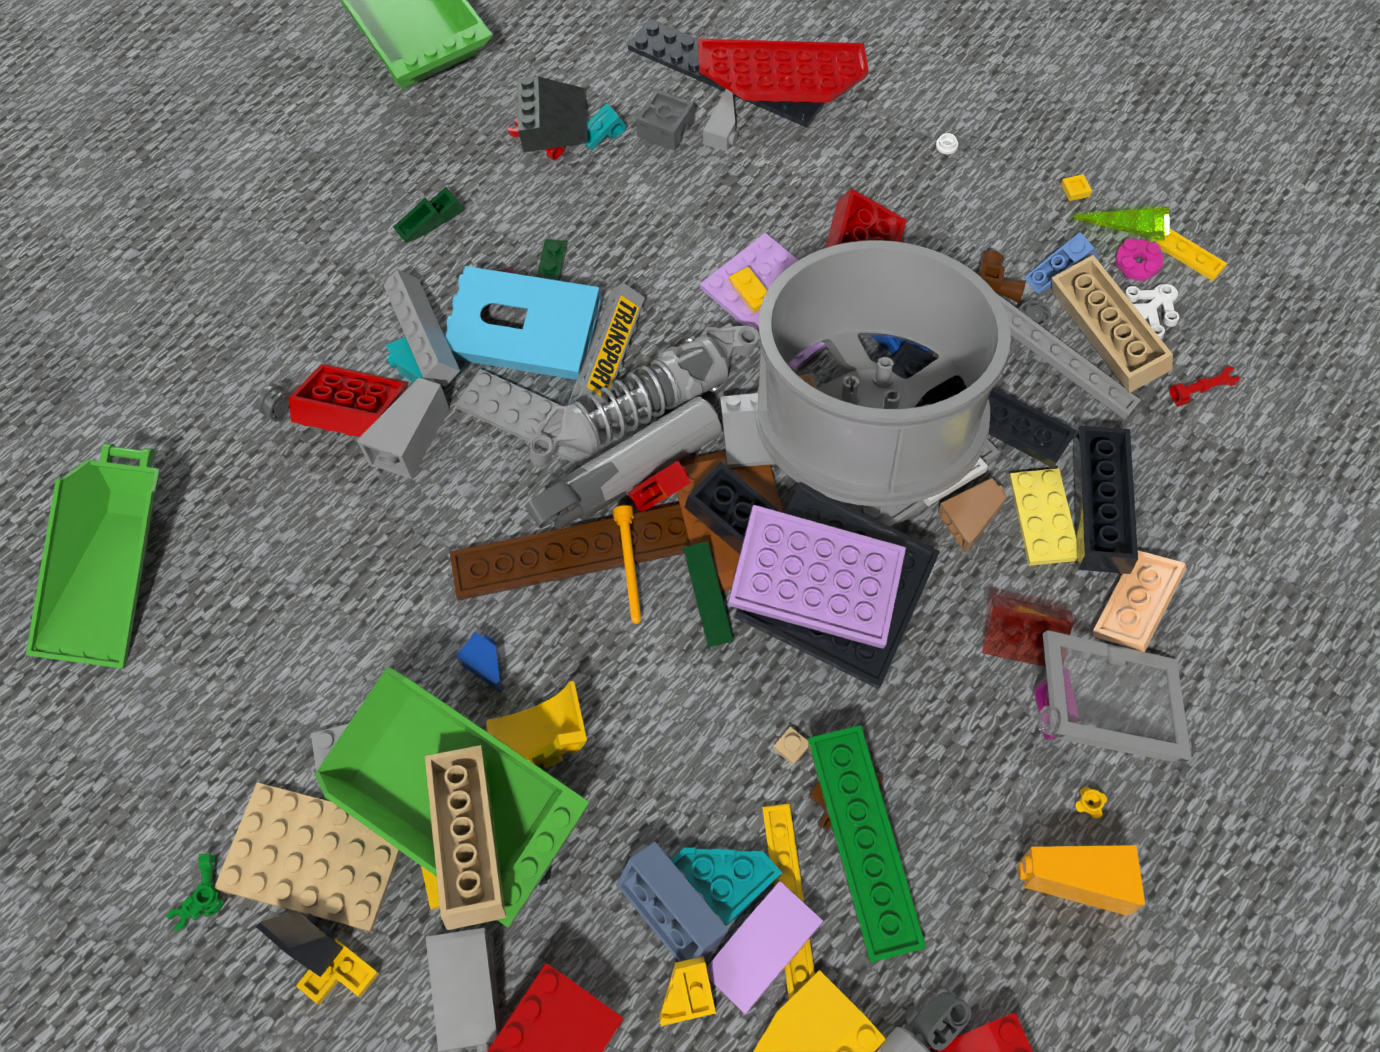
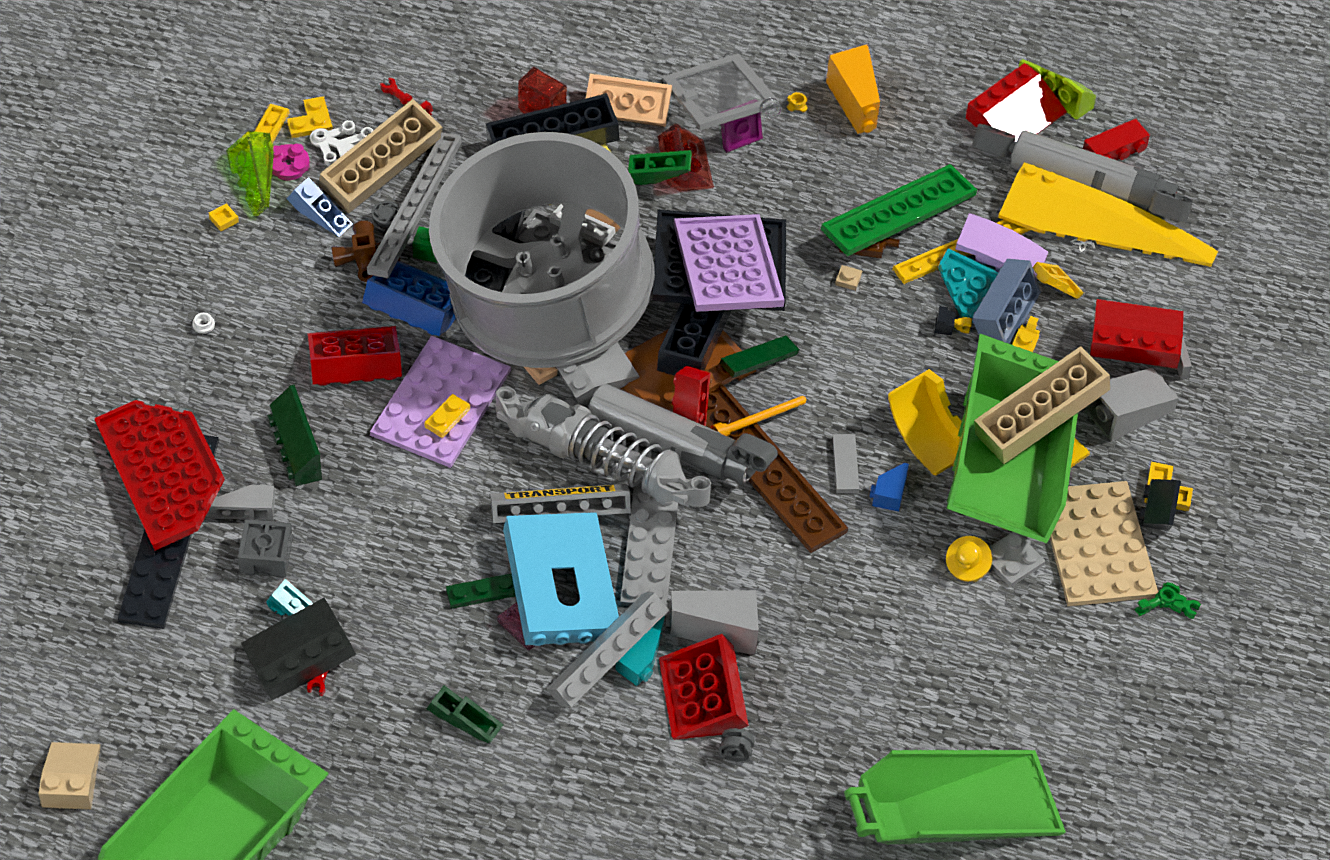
camera: 120 degrees left, 10 degrees down
(350, 696) = (969, 558): none -> yellow plate
(541, 634) = (845, 463): none -> light grey tile
(613, 907) = (1027, 335): none -> yellow hinge
(680, 826) = (946, 322): none -> black piece
(775, 172) = (295, 438): none -> dark green slope
(1015, 582) = (658, 167): none -> green slope
(1163, 503) = (540, 91): none -> clear red brick
(1193, 299) = (316, 118): none -> yellow plate

